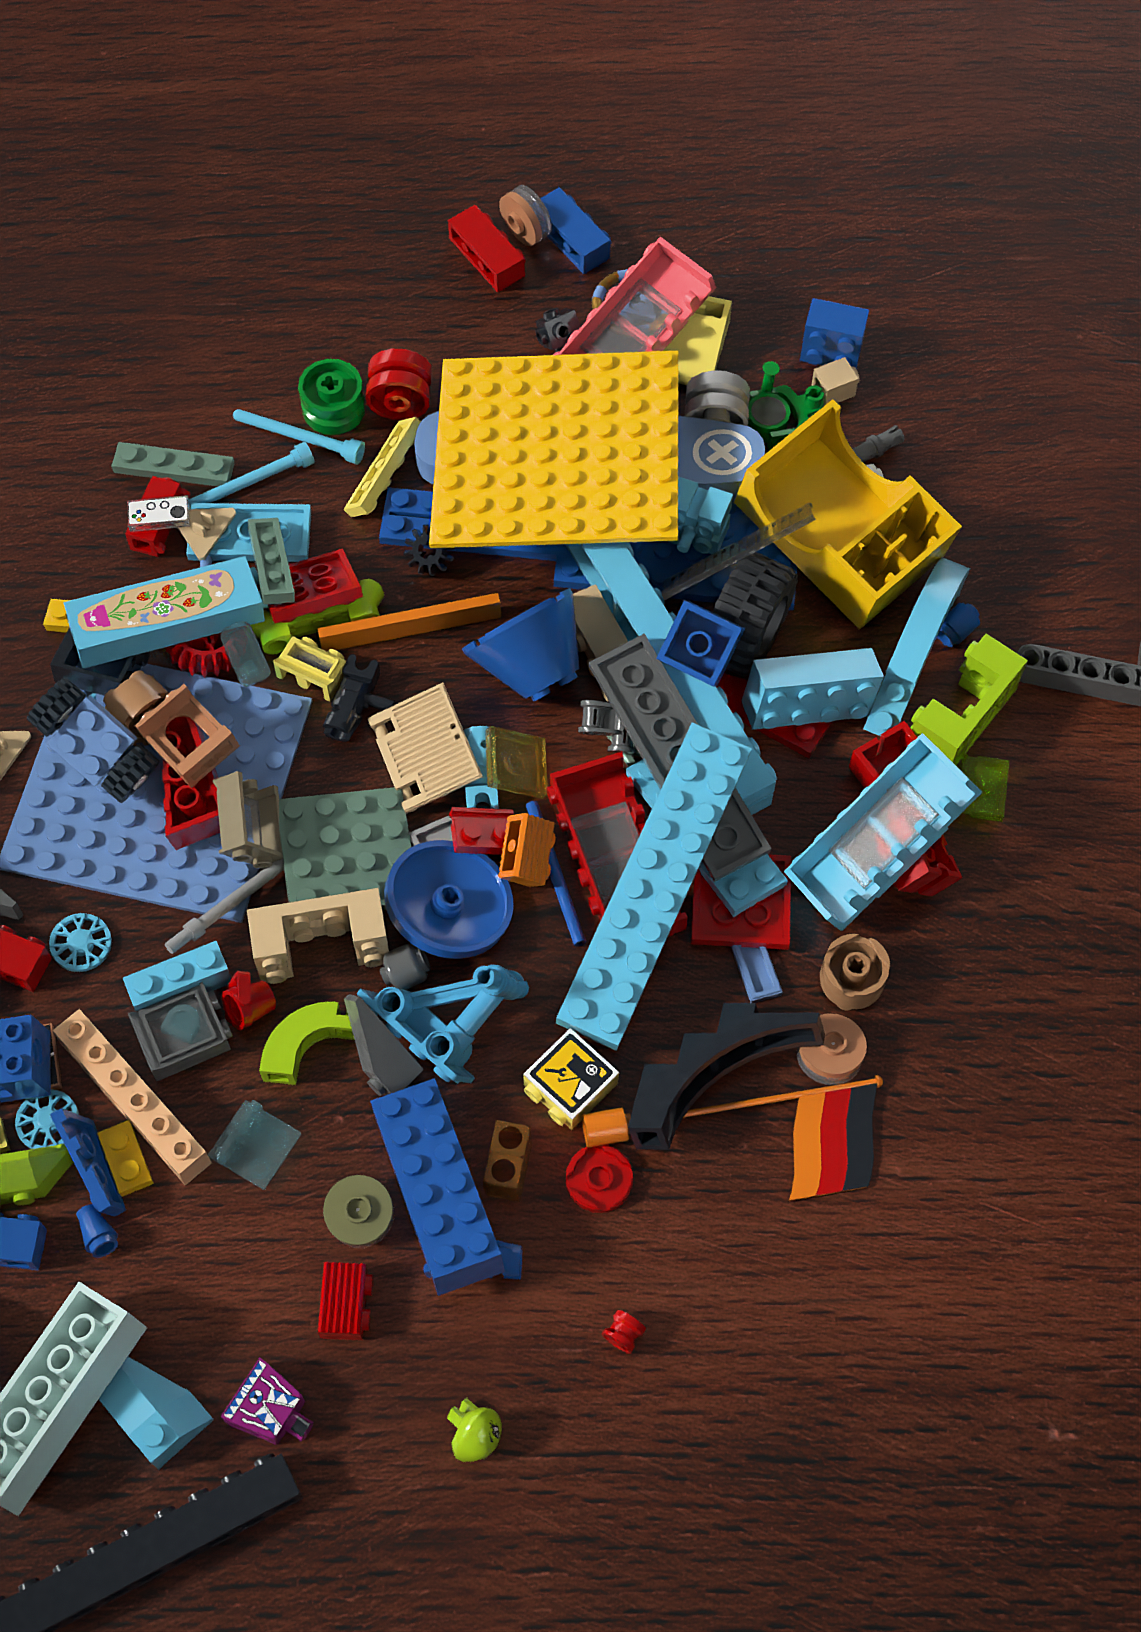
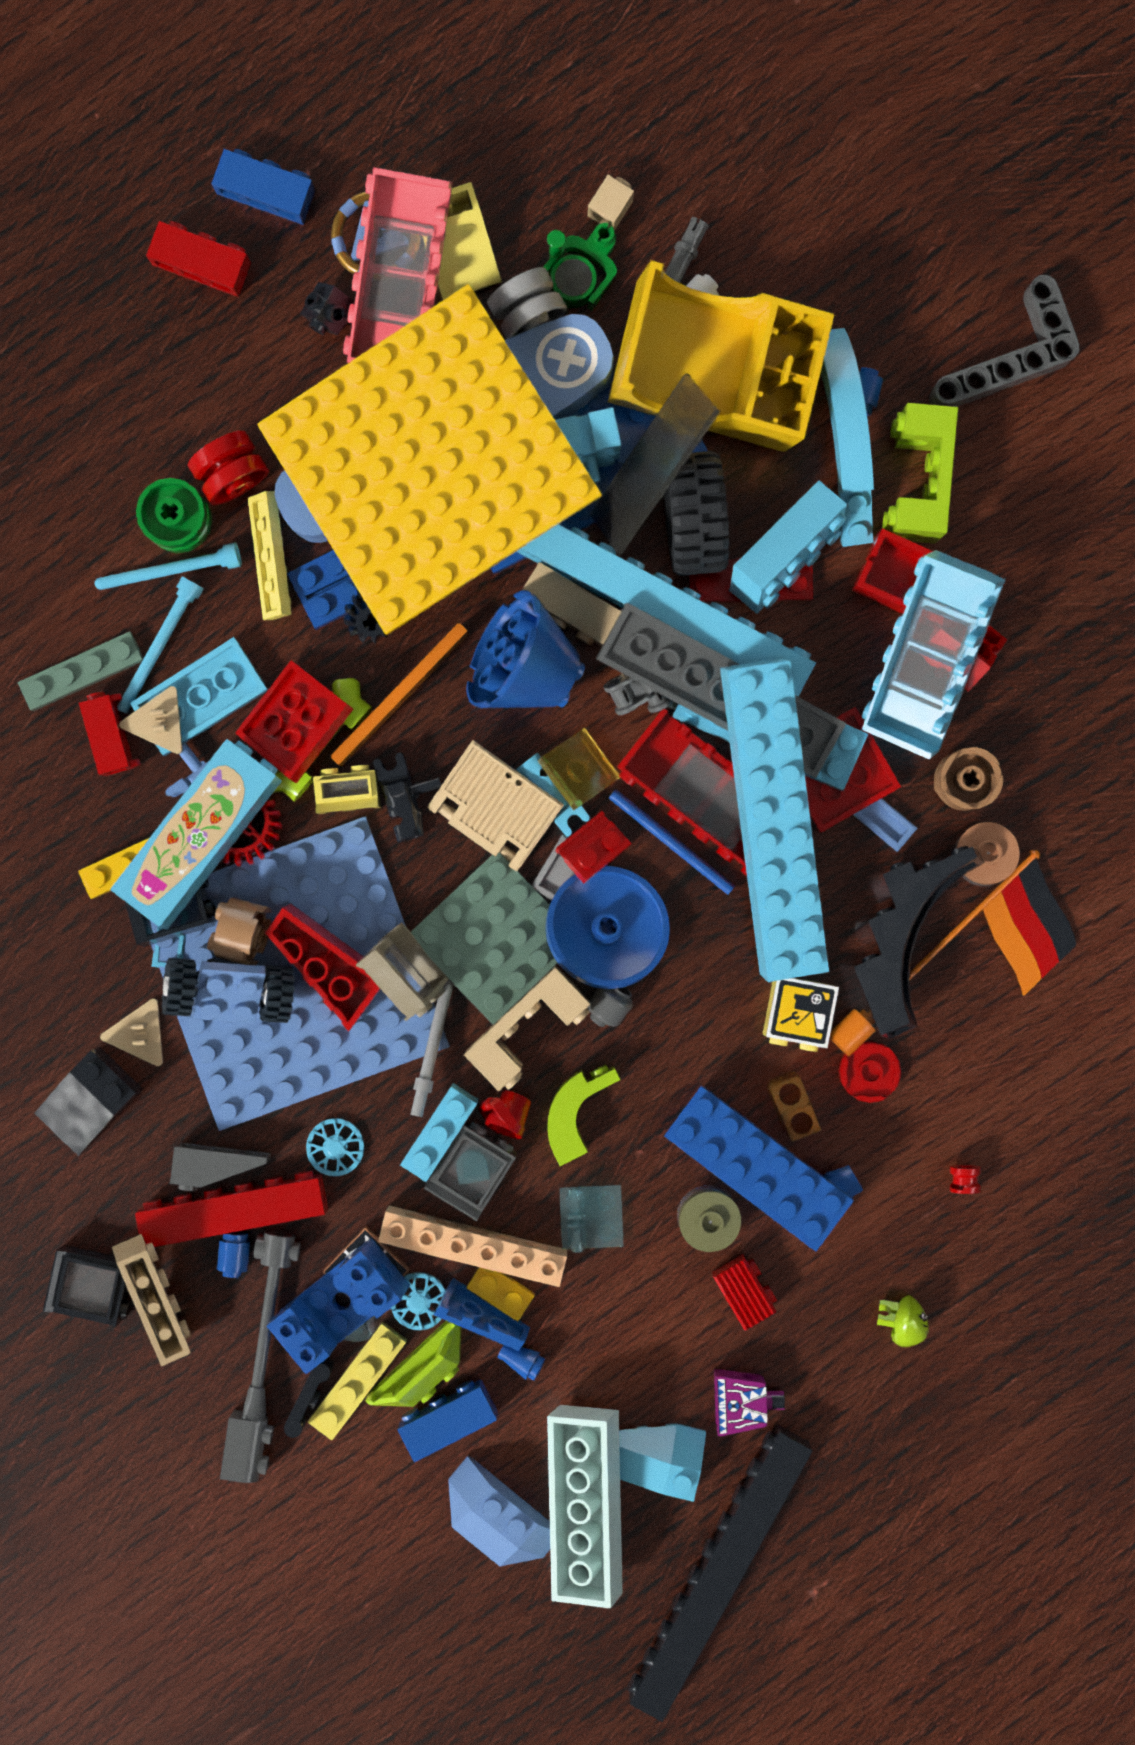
camera: 30 degrees left, 25 degrees up
(158, 513) = (114, 738): tile -> none
(206, 756) = (274, 952): nougat panel -> none
(245, 653) = (288, 822): clear light blue piece -> none
(271, 561) = (248, 724): sand green plate -> none
(380, 1052) = (645, 1092): dark grey slope -> none
(429, 1036) = (687, 1057): dark azure plate -> none
(525, 215) = (214, 202): nougat piece -> none
(527, 850) = (642, 845): orange brick -> none
(700, 643) = (686, 586): blue brick -> none
(833, 333) = (583, 156): blue brick -> none
(991, 778) = (974, 537): clear neon green plate -> none

